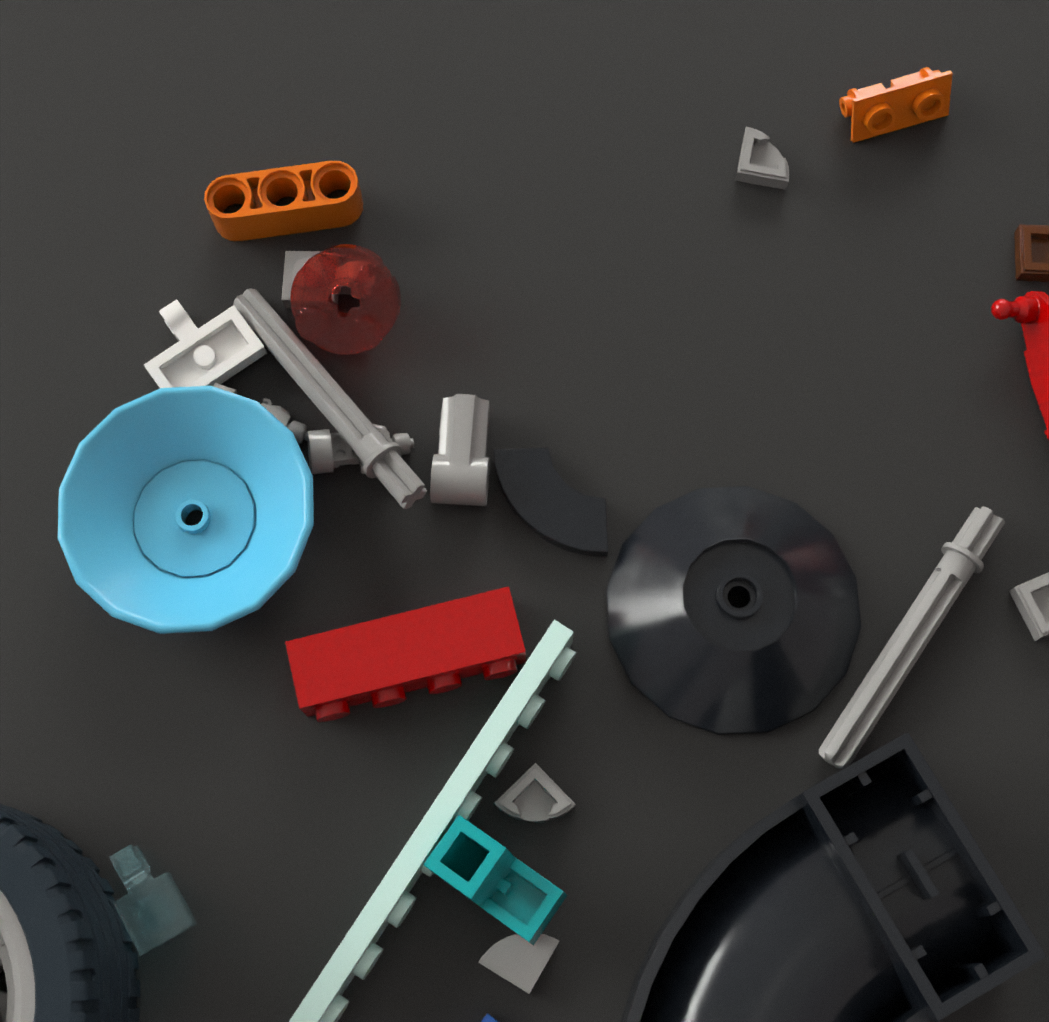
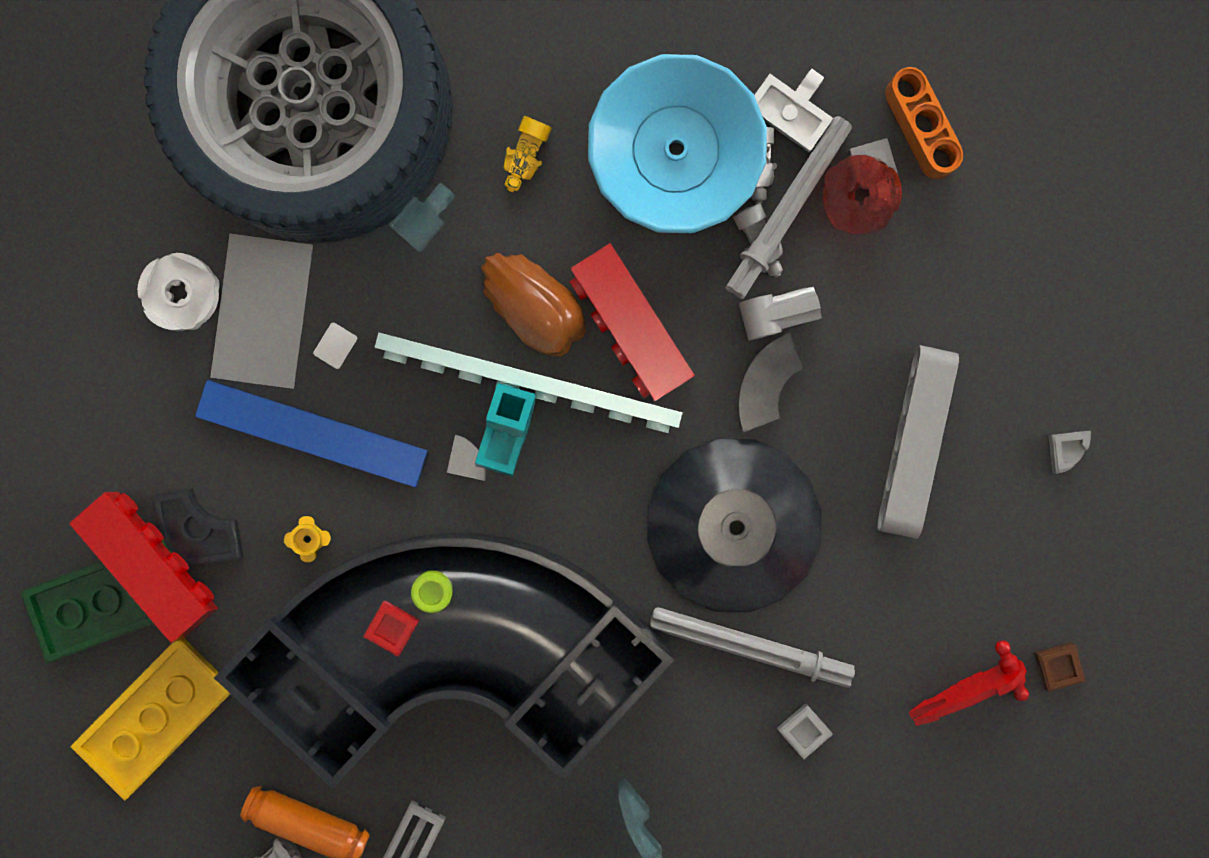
camera: 70 degrees right, 15 degrees up
(125, 732) = (522, 160): none -> yellow piece
(330, 783) = (533, 303): none -> dark orange hair
(535, 798) = (567, 436): light grey tile -> none
(696, 334) = (918, 441): none -> light grey beam
(906, 103) = (1153, 546): orange hinge -> none

